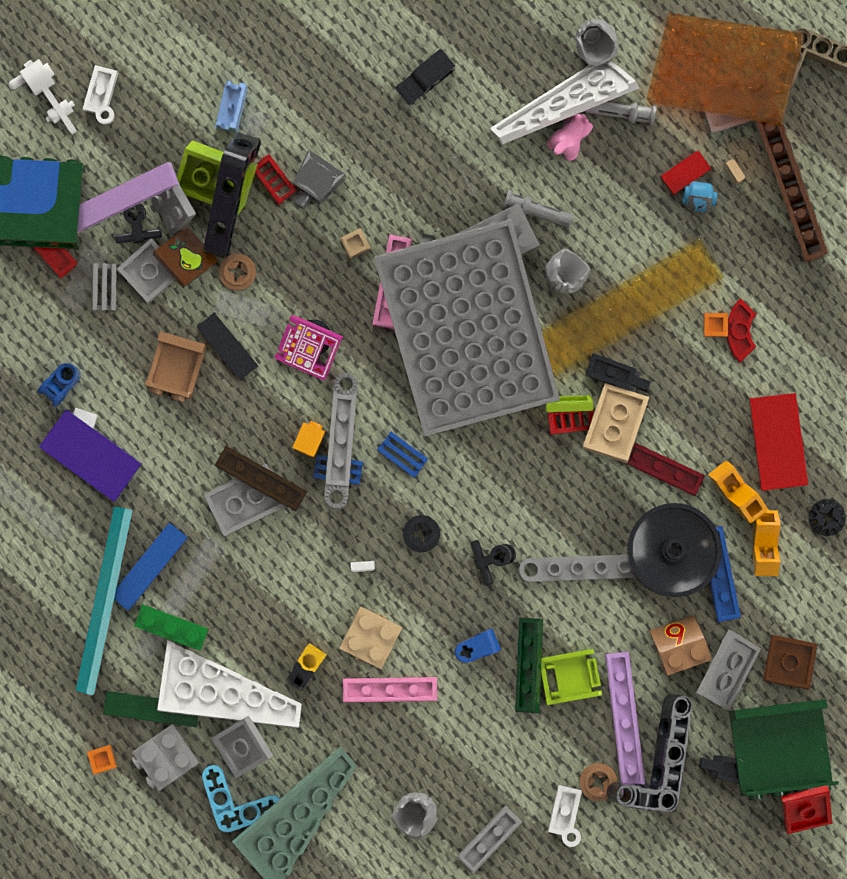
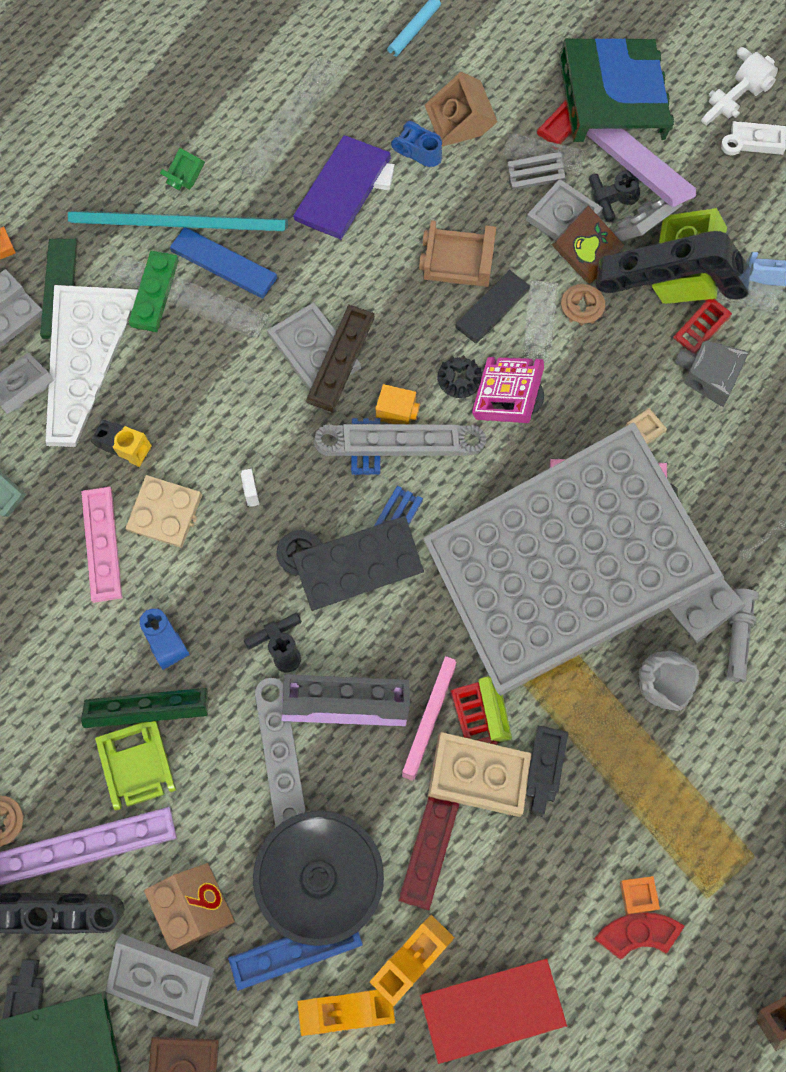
camera: 85 degrees right, 15 degrees down
(32, 341) = (461, 110): none -> medium nougat slope
(53, 592) = (183, 170): none -> green bracket
(287, 395) = (460, 388): none -> black gear
(438, 489) = (357, 563): none -> black plate
(548, 513) = (345, 700): none -> dark grey piece
(568, 453) = (429, 719): none -> bright pink tile

